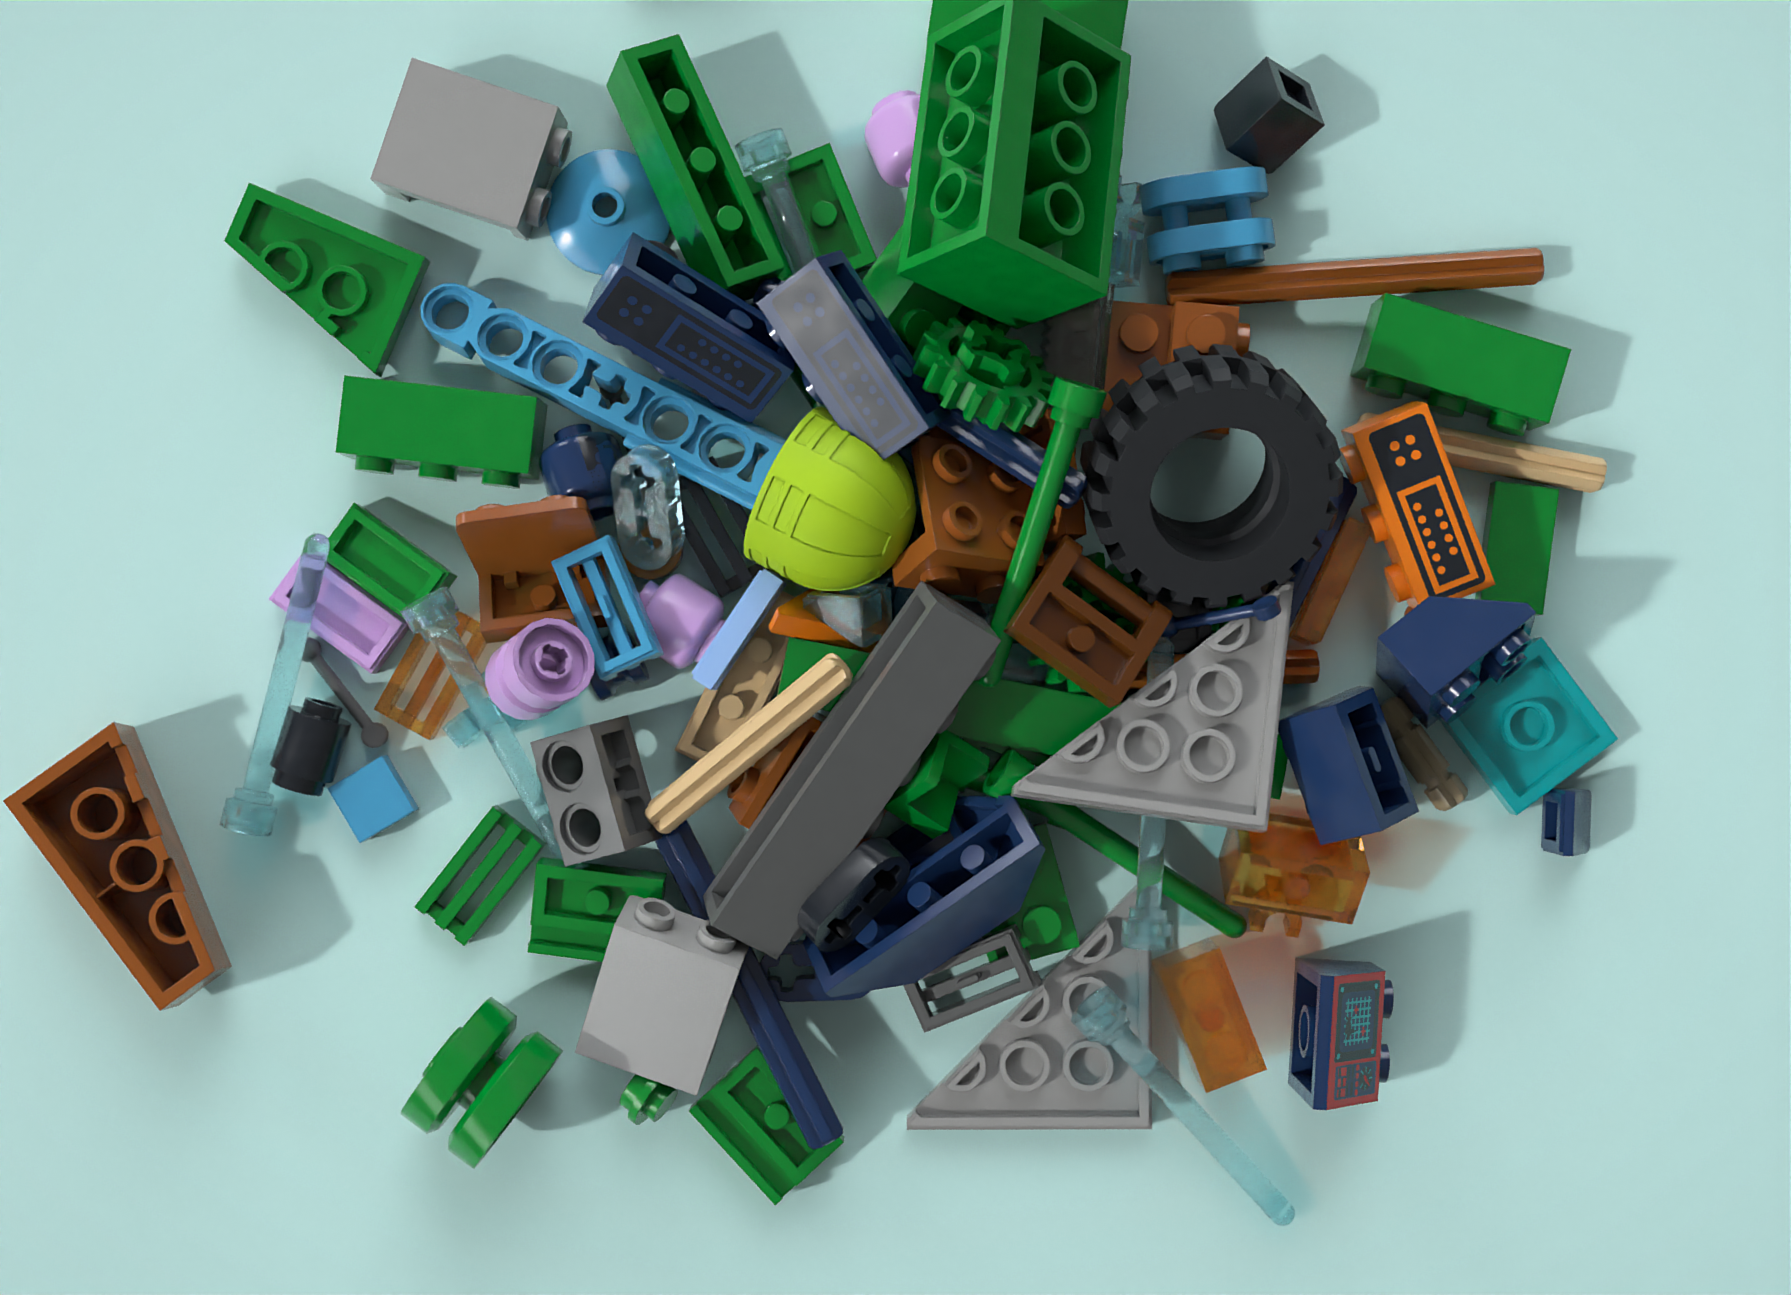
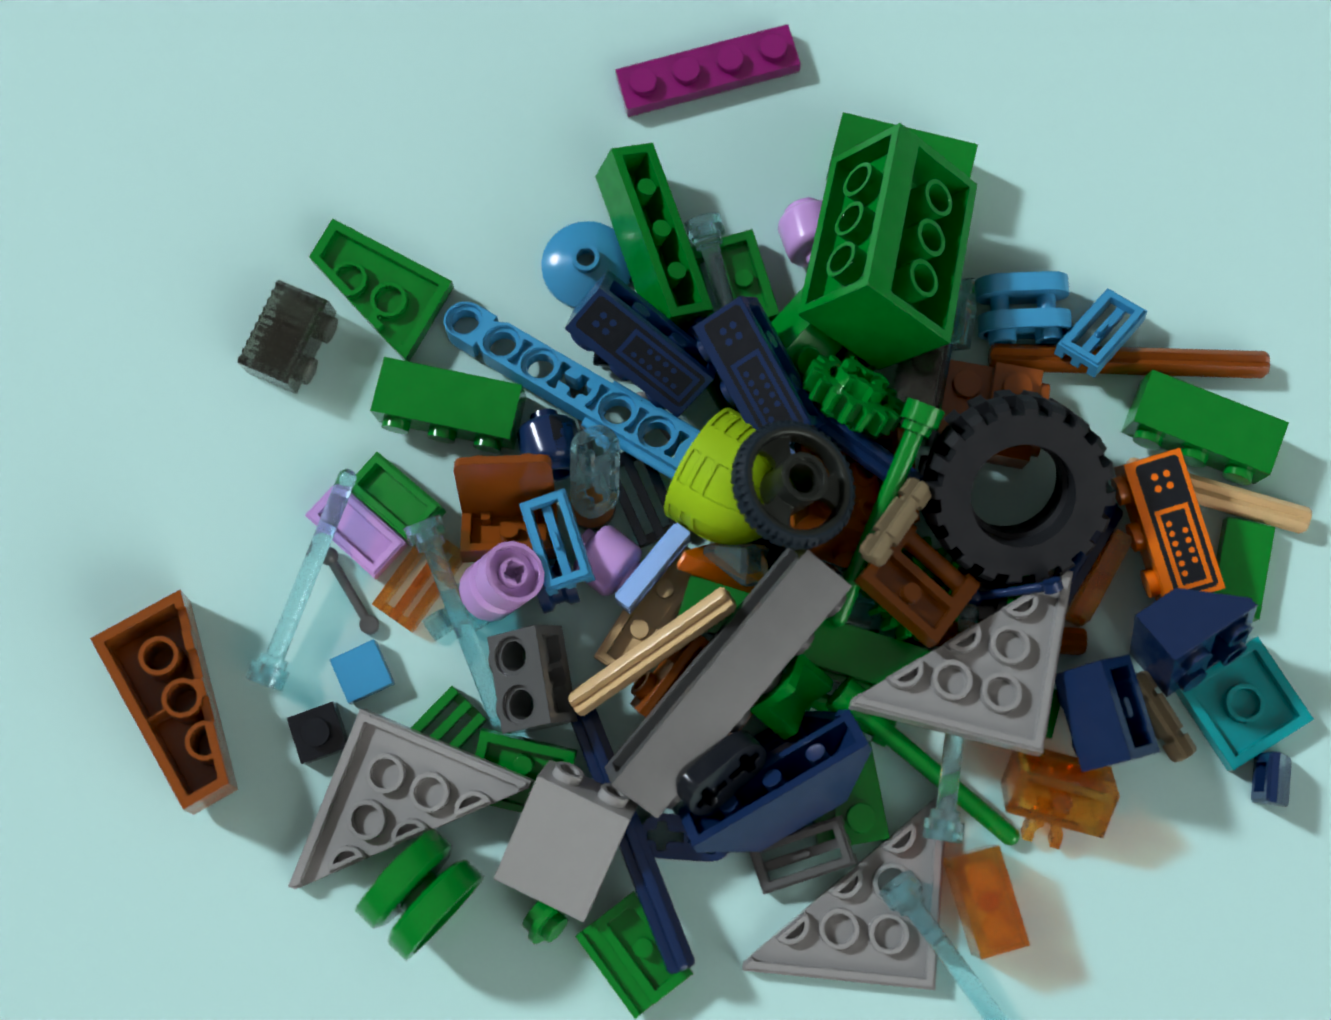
camera: 10 degrees right, 10 degrees down
(212, 356) = (288, 337): none -> clear smoke brick
(309, 746) = (320, 626): black brick -> none
(326, 883) = (318, 732): none -> black plate
(434, 947) = (393, 789): none -> light grey tile
(472, 148) = (495, 209): light grey panel -> none
(887, 566) = (777, 492): none -> pearl dark grey wheel
(1052, 547) = (895, 522): none -> dark tan axle
(1268, 116) = (1072, 240): black panel -> none
(1290, 281) = (1083, 354): none -> dark azure tile
(1338, 1032) = (1087, 924): dark blue slope -> none

